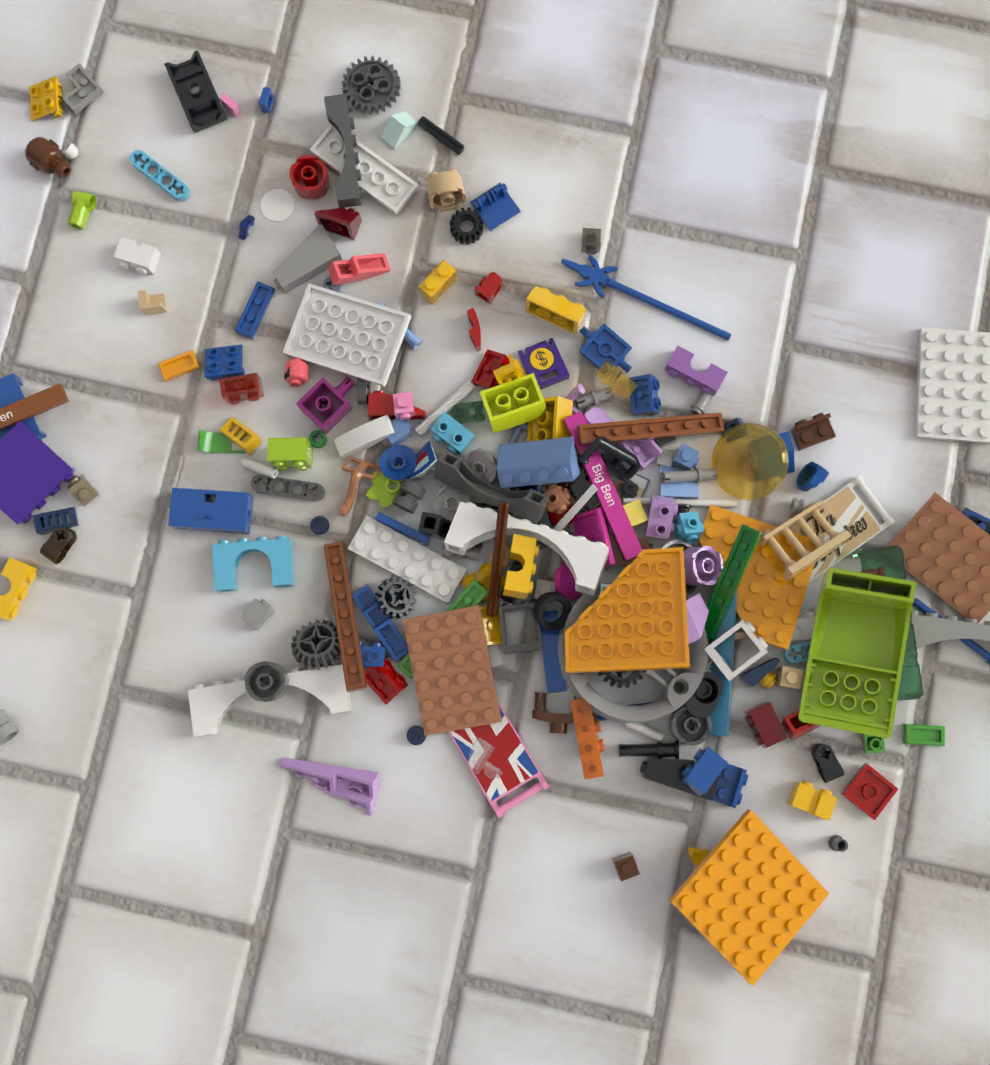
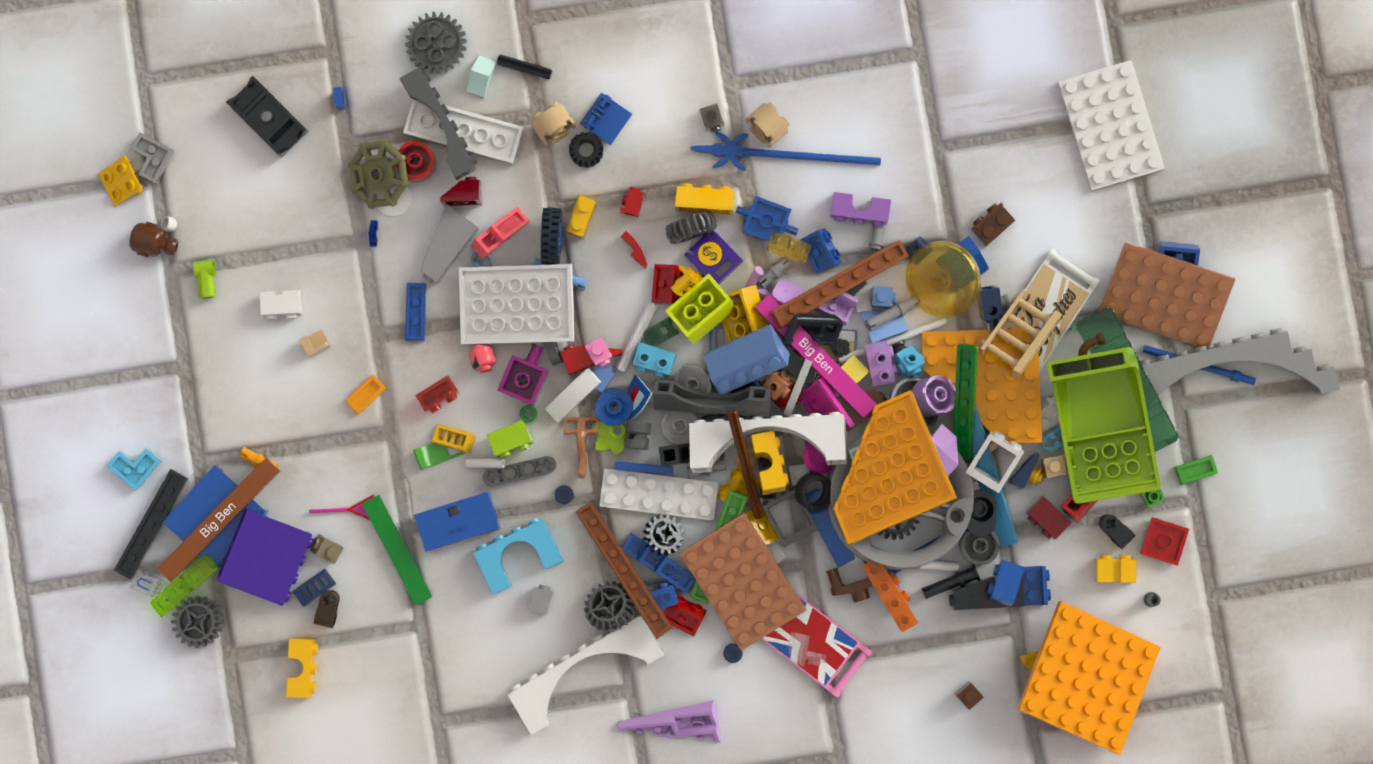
camera: 15 degrees left, 5 degrees up
(51, 380) = (252, 457): none -> light orange pin
(133, 467) = (357, 509): none -> dark pink piece
(146, 516) = (397, 550): none -> green tile
(158, 177) = (266, 215): medium azure beam -> none
(223, 362) = (408, 374): blue hinge -> none
(230, 105) = (306, 117): bright pink tile -> none
(255, 684) = (569, 664): dark grey brick -> none
(258, 174) = (387, 174): none -> olive plate
(403, 284) = (551, 235): none -> black wheel
(533, 326) = (691, 227): none -> dark grey gear
(639, 263) = (767, 124): none -> tan brick
(786, 496) = (989, 297): none -> dark blue torso
(811, 476) = (1006, 269): blue rock -> none

